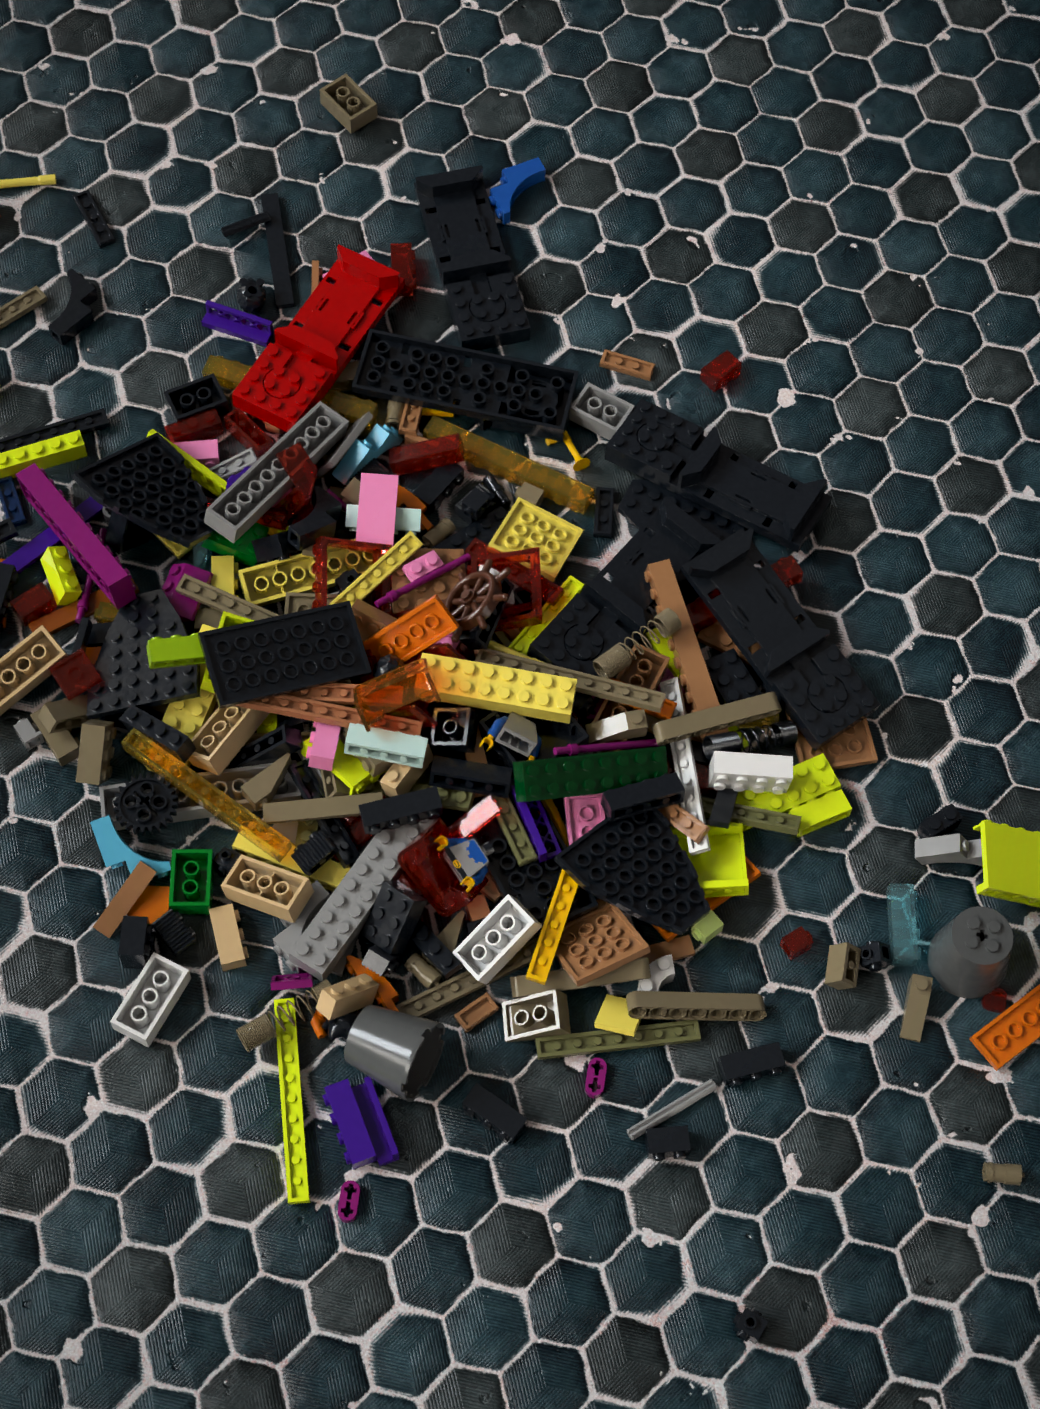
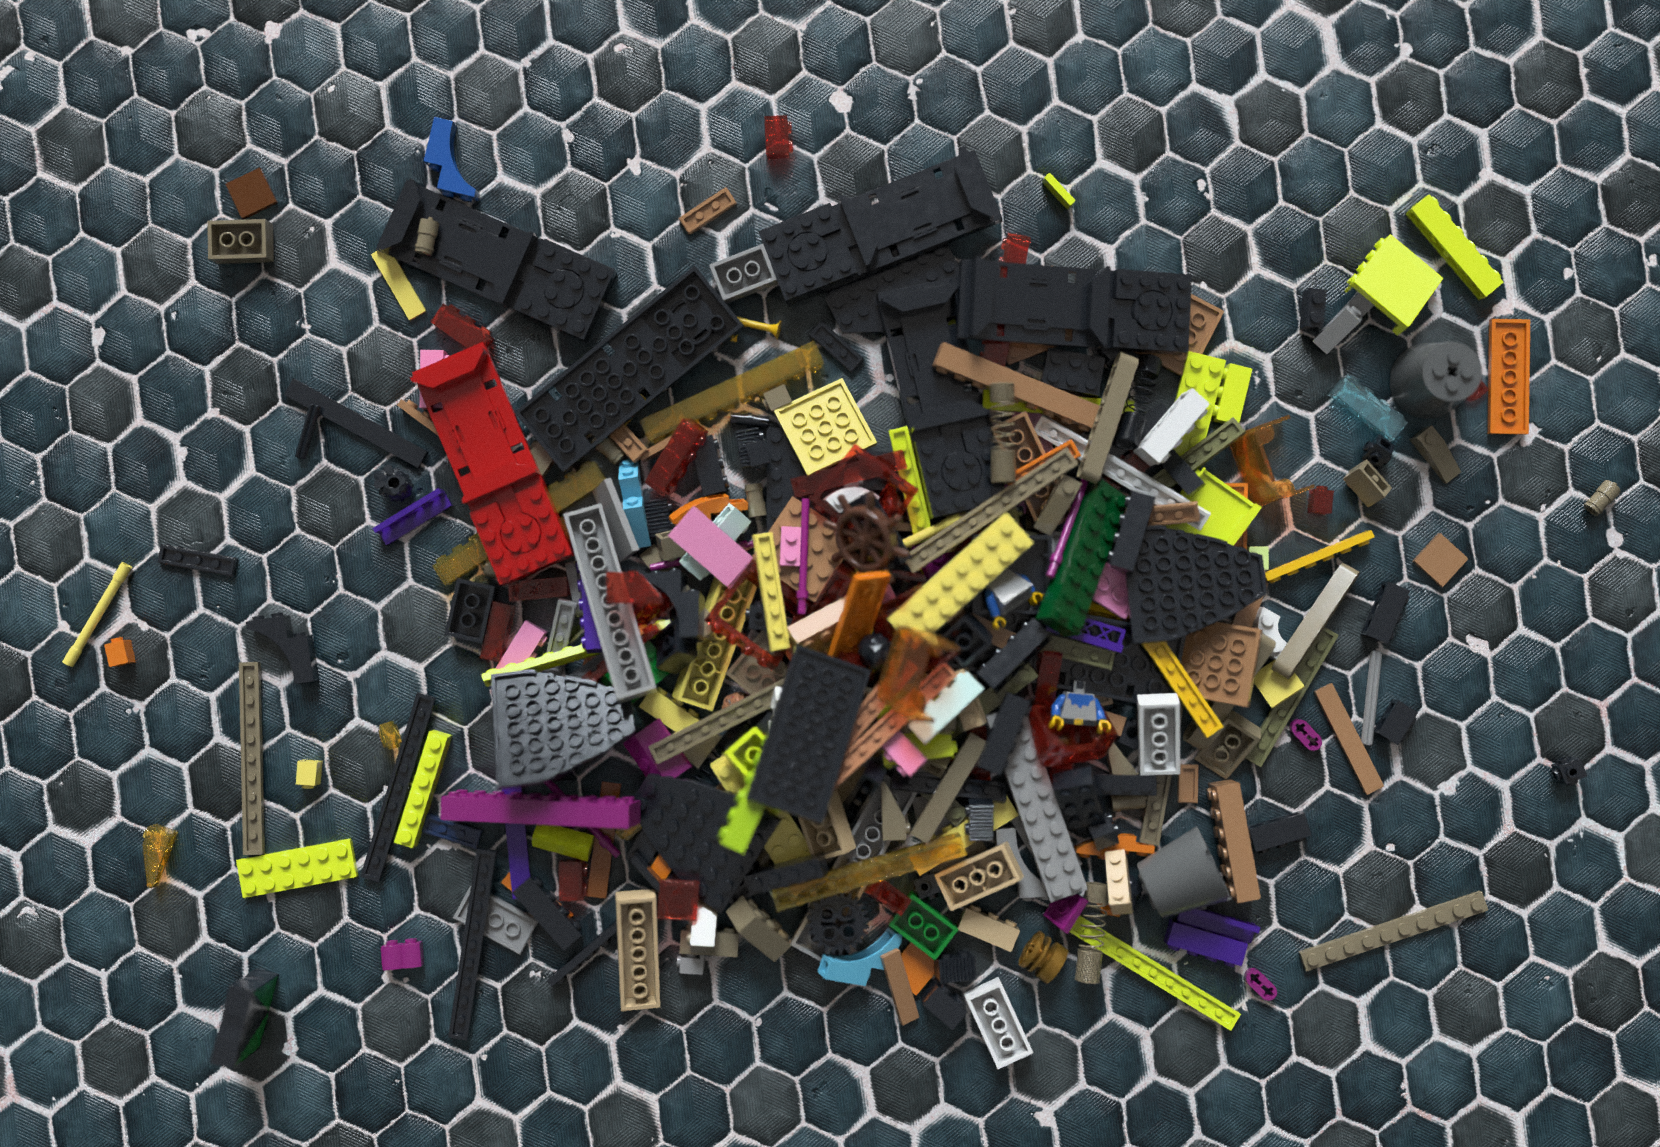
camera: 50 degrees left, 25 degrees up
(56, 411) = (389, 735): none -> clear yellow brick
(196, 828) = (888, 896): none -> clear red brick
(235, 992) = (1043, 956): none -> pearl gold wheel
(389, 92) = (251, 193): none -> reddish brown tile
(400, 215) = (399, 285): none -> light yellow tile
(450, 202) = (427, 234): none -> dark tan piece
(456, 1076) = (1233, 840): none -> medium nougat brick
(486, 1284) = (1393, 930): none -> dark tan plate
(621, 1117) = (1348, 738): none -> medium nougat tile
(755, 976) = (1325, 554): none -> yellow plate
(768, 892) = (1255, 467): none -> clear orange windscreen
(834, 1079) = (1440, 559): none -> medium nougat tile
(857, 579) = (1058, 191): none -> neon yellow tile

